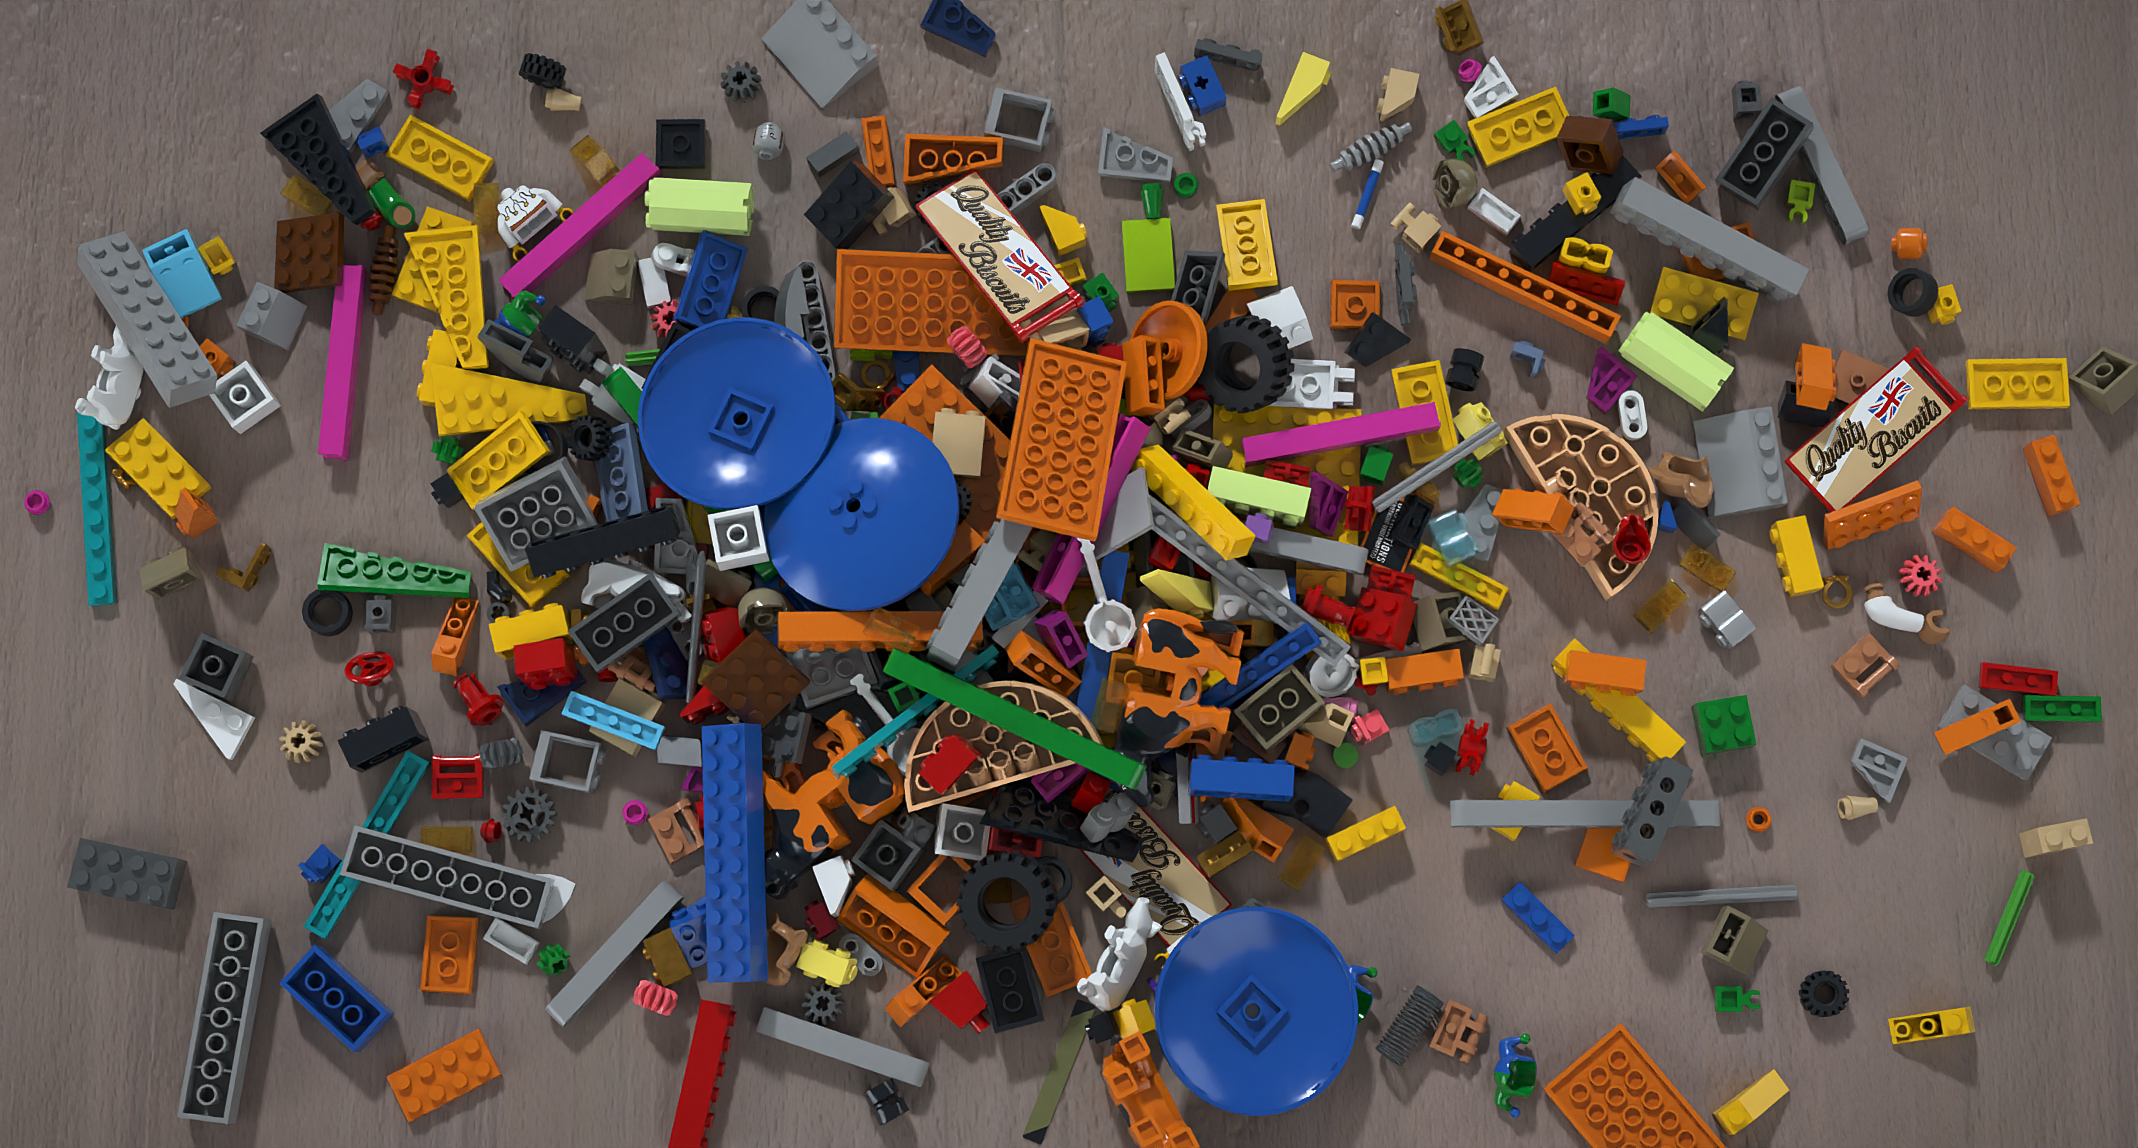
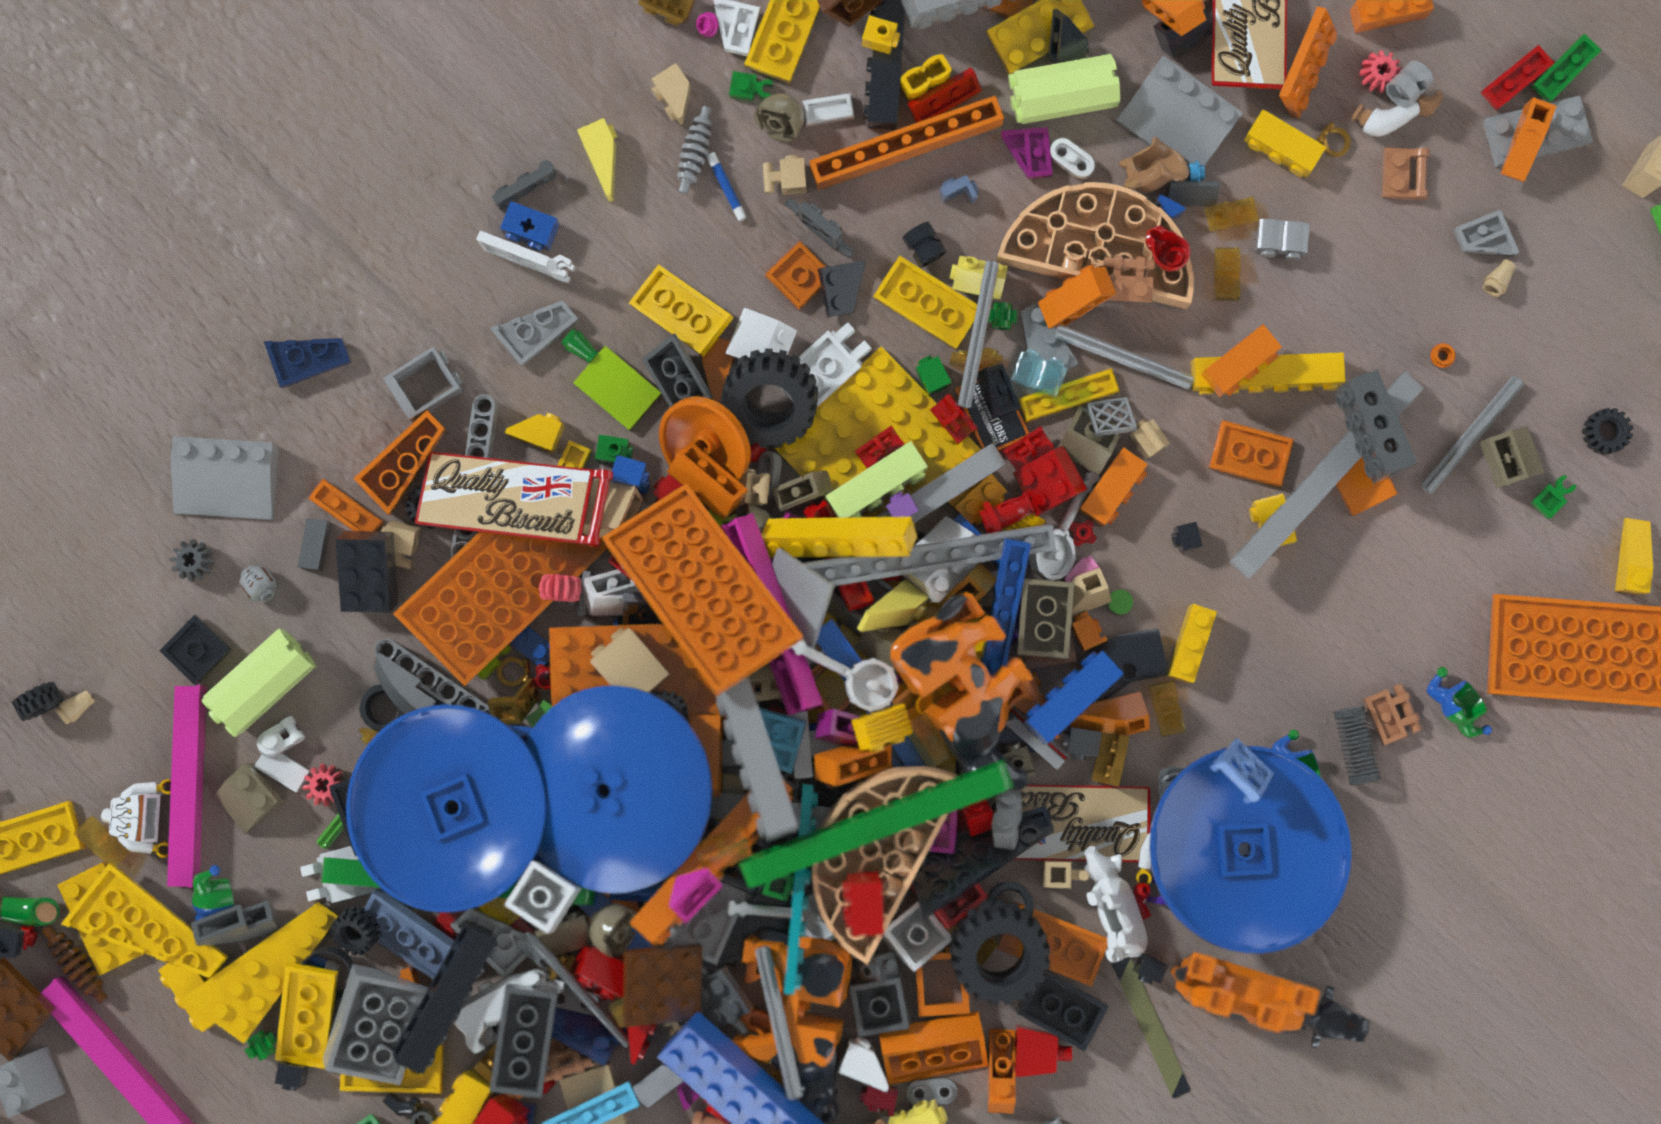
camera: 45 degrees left, 5 degrees up
(572, 340) = (268, 877): black brick -> none
(594, 160) = (145, 726): clear yellow slope -> none
(710, 281) = (324, 729): blue tile -> none
(807, 788) = (778, 1022): none -> light grey axle
(841, 636) = (693, 892): none -> dark pink slope
(1087, 660) = (882, 727): none -> yellow brick
(1134, 1018) = (1167, 938): yellow brick -> none
(1148, 971) = (1141, 893): none -> red arm
(1185, 185) = (591, 310): green tile -> none
(1318, 937) = (1242, 755): none -> medium blue piece
(1325, 504) = (928, 440): magenta wing -> none
(1340, 434) = (886, 379): dark pink tile -> none
(1368, 727) = (1116, 566): coral bracket -> none
(1373, 671) = (1081, 524): yellow plate -> none
(1442, 726) = (1162, 524): clear light blue brick -> none
(1472, 747) = (1203, 507): red pin -> none
(1525, 588) = (1123, 356): none -> light grey axle
(1537, 917) = (1364, 578): blue plate -> none
(1711, 511) = (1196, 173): none -> dark azure plate
(1723, 725) = (1355, 314): green brick -> none
(1931, 602) = (1409, 84): none -> light grey wheel

